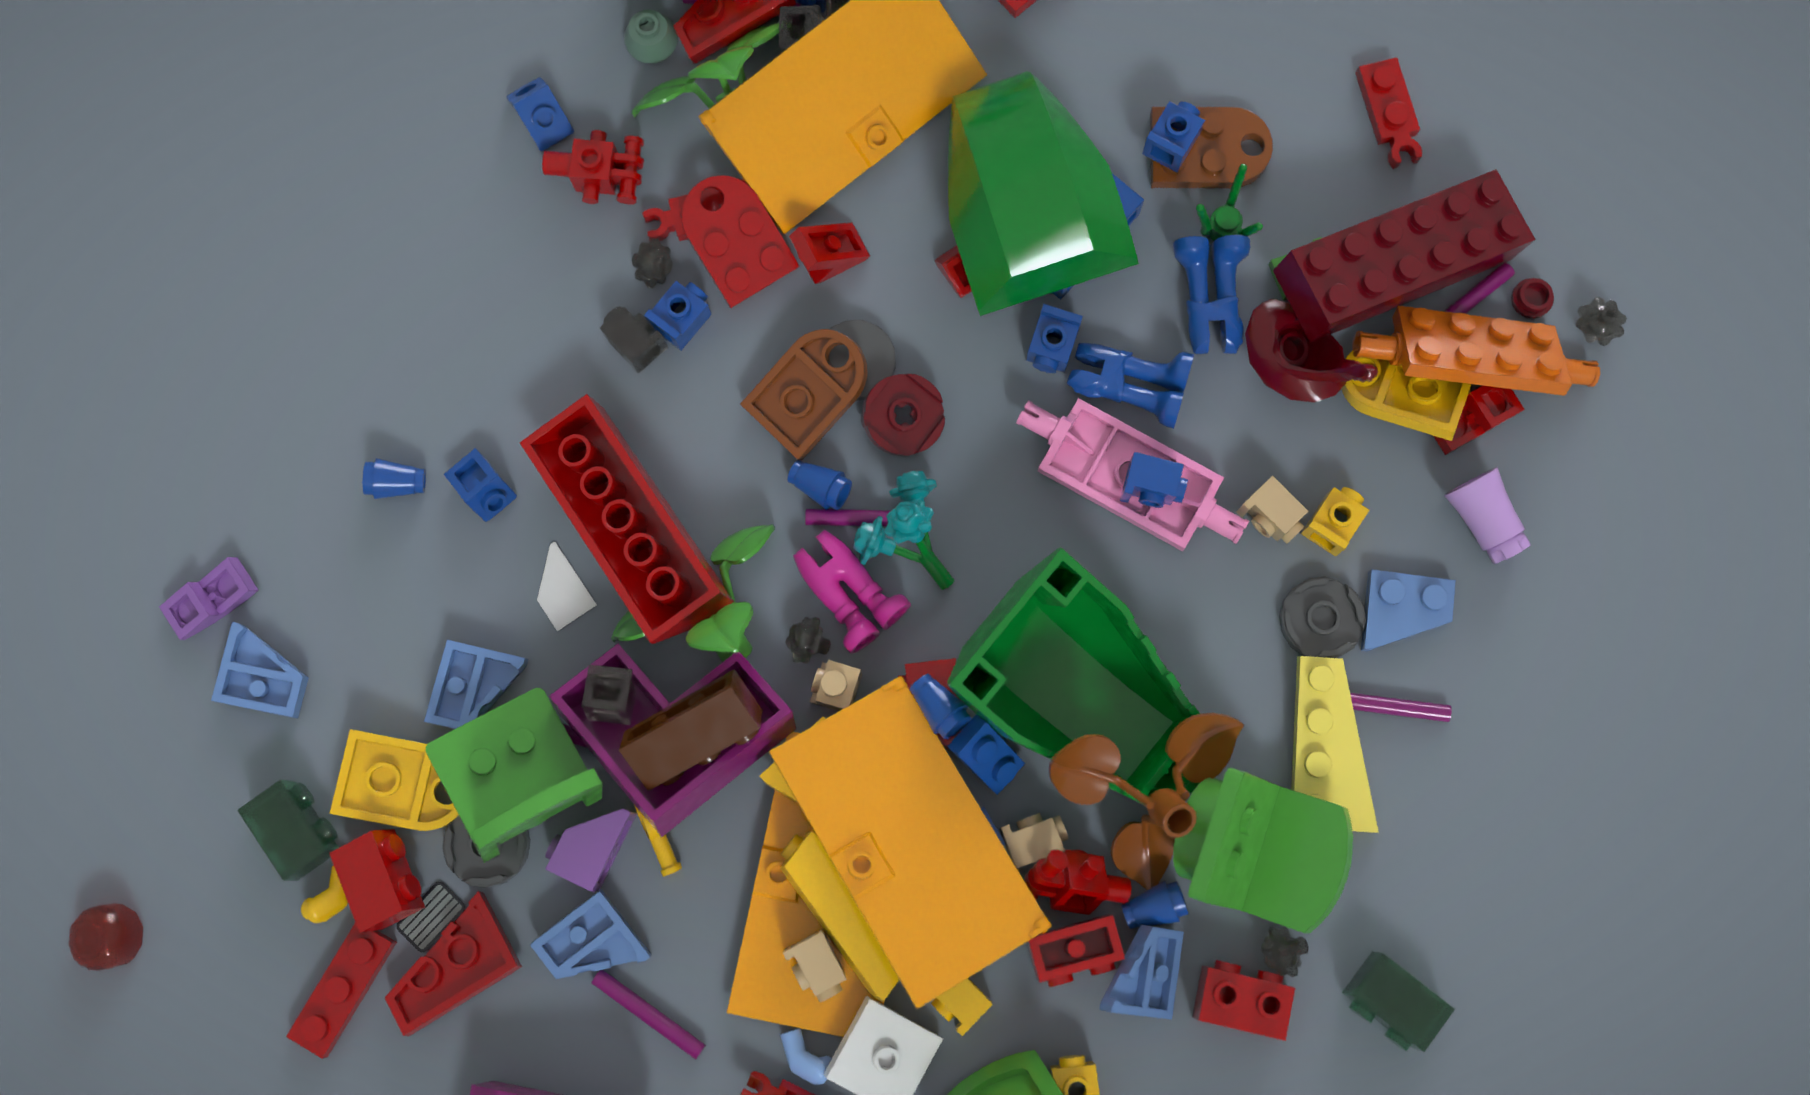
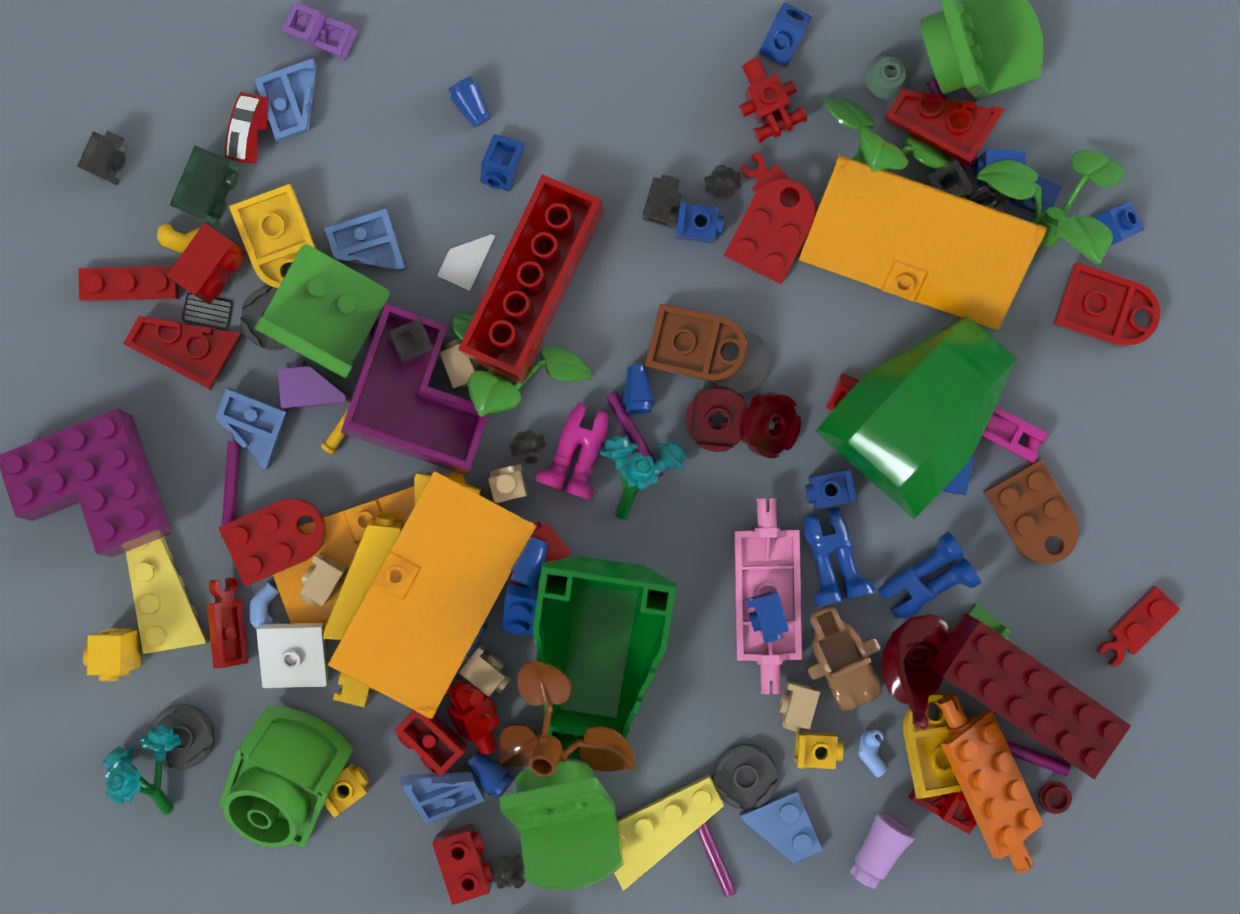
camera: 55 degrees right, 10 degrees up
(105, 936) = (69, 110): clear red hair -> none
(182, 927) = (104, 156): none -> clear smoke brick
(247, 735) = (246, 119): none -> slope
(670, 660) = (457, 364): none -> tan brick
(691, 731) = (416, 413): reddish brown brick -> none
(734, 996) = (272, 539): none -> red plate
(828, 249) = (804, 298): red slope -> none
(926, 355) = (756, 430): none -> dark red plate
(1103, 124) = (1007, 430): none -> dark pink plate
(1170, 146) = (1014, 489): blue brick -> none
(1227, 219) = (987, 559): green plant -> none
(1251, 432) = (843, 660): none -> medium nougat piece
(1368, 466) = (869, 750): none -> light blue arm
(1600, 321) = (1064, 852): clear smoke plant -> none

